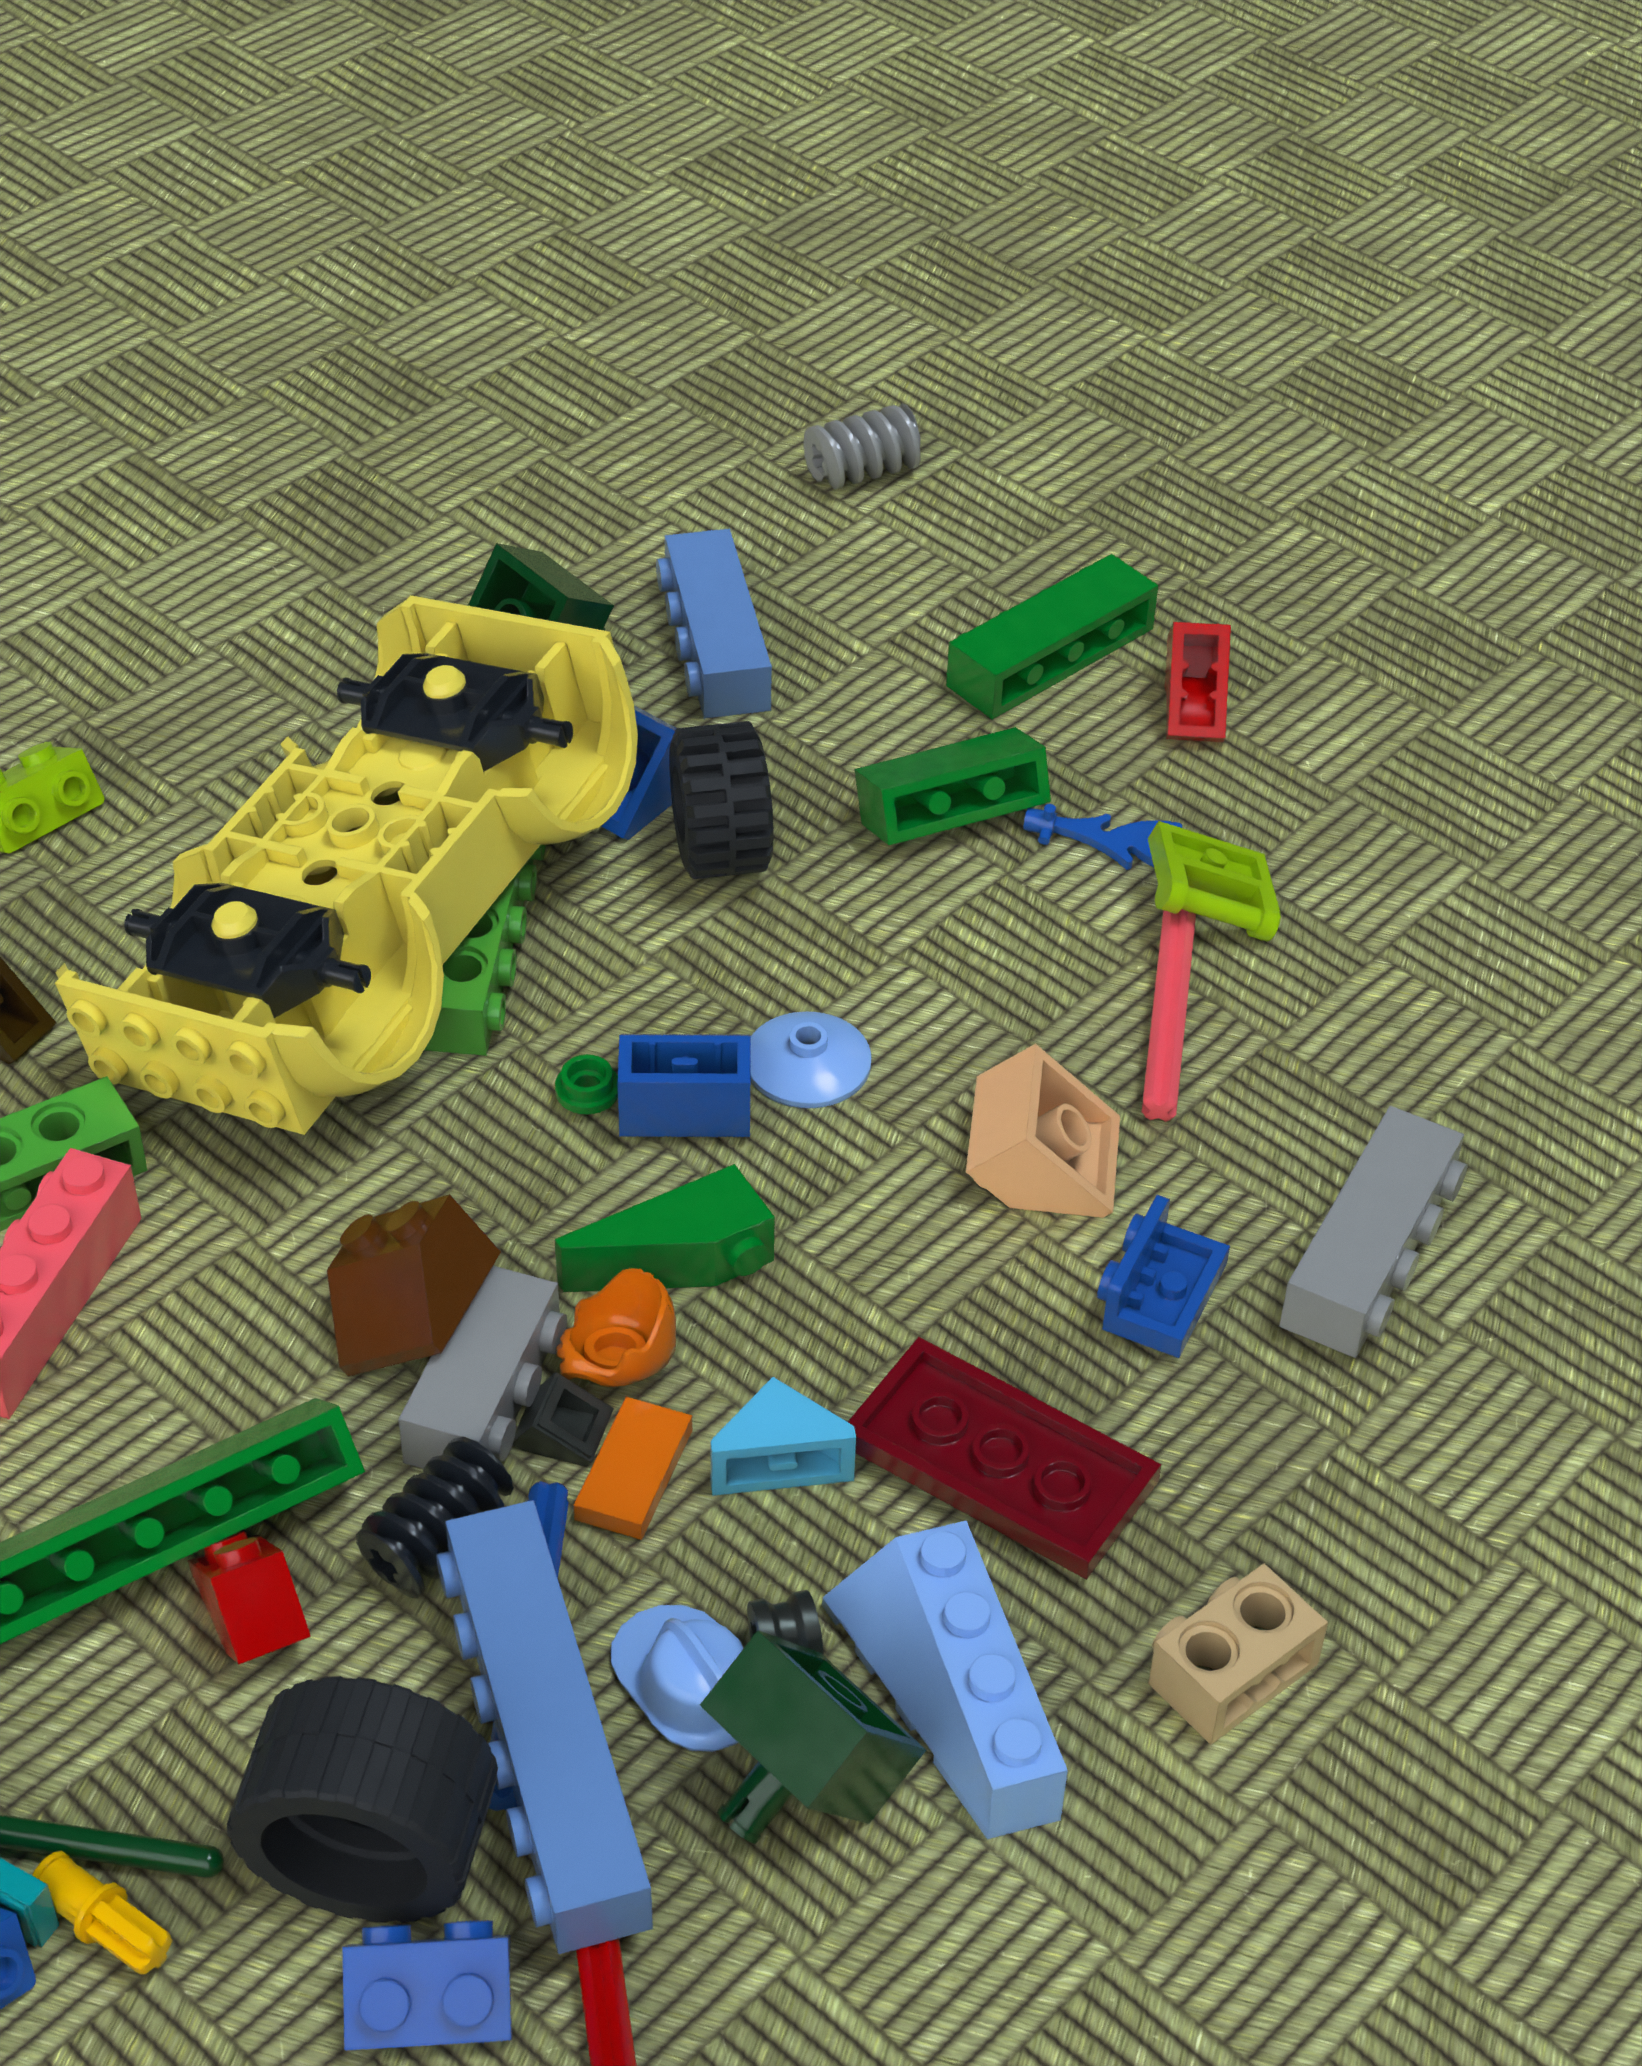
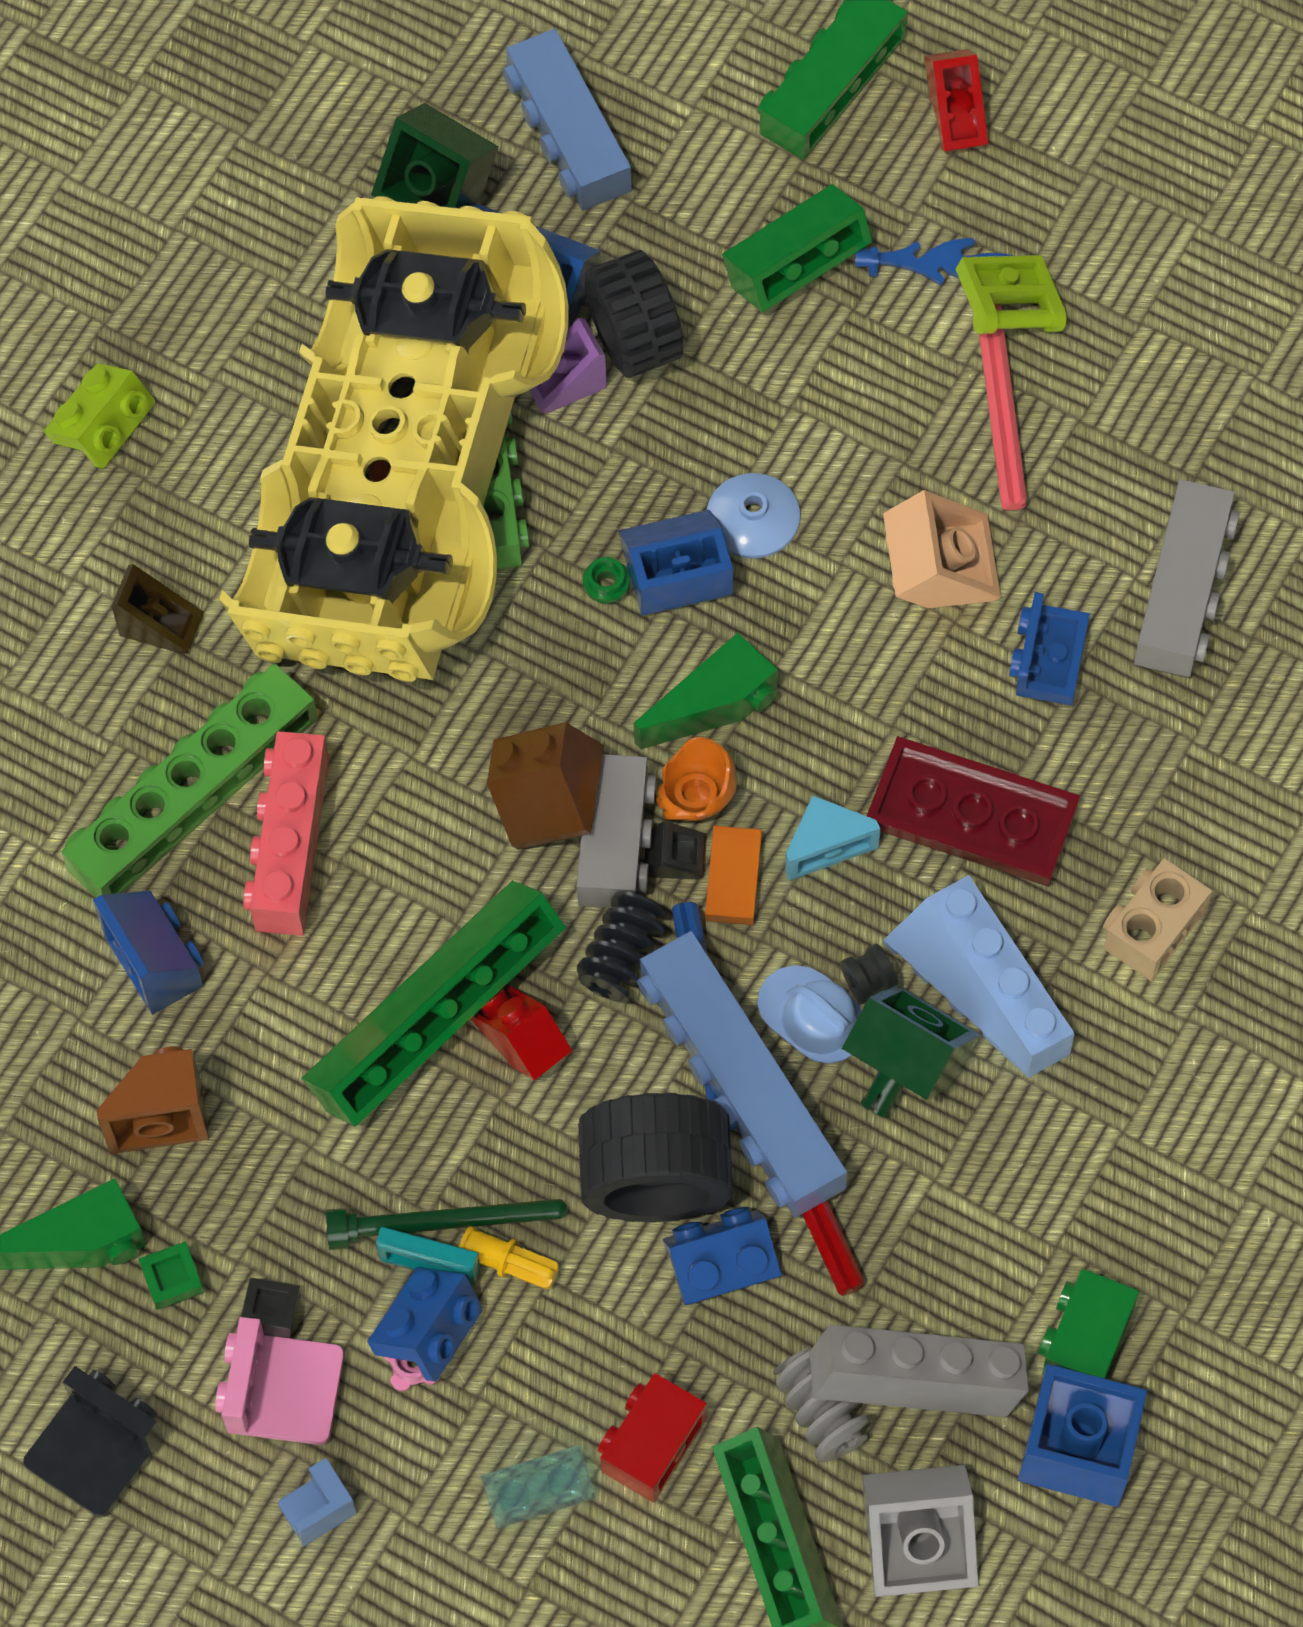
camera: 10 degrees left, 20 degrees up
(624, 855) = (578, 372): none -> medium lavender slope

